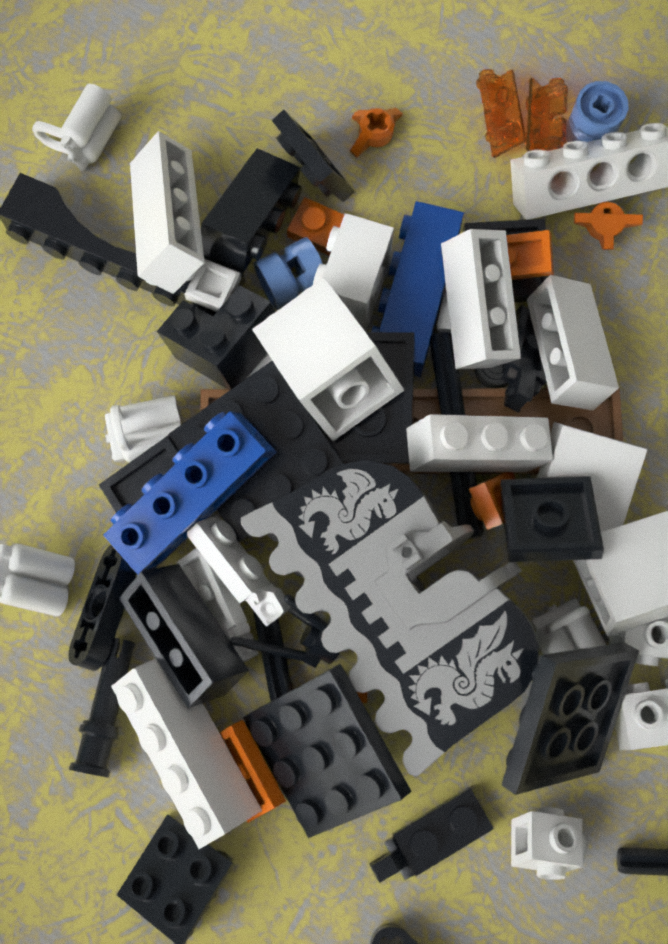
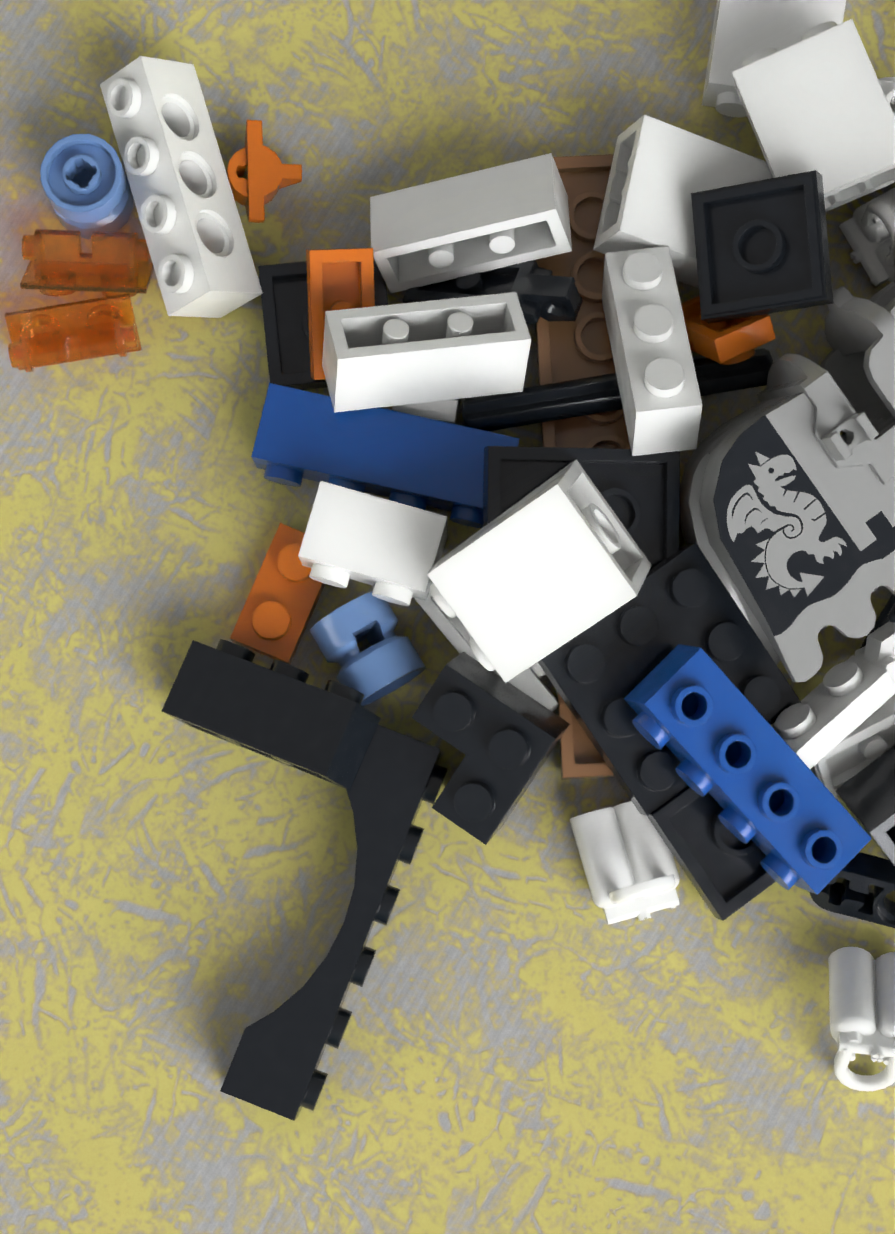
camera: 90 degrees left, 5 degrees up
(85, 129) = (130, 995): white piece -> none
(166, 214) = (293, 841): white brick -> none
(212, 285) = (408, 762): white tile -> none
(314, 161) = (197, 605): black plate -> none
(375, 128) = (97, 539): orange piece -> none

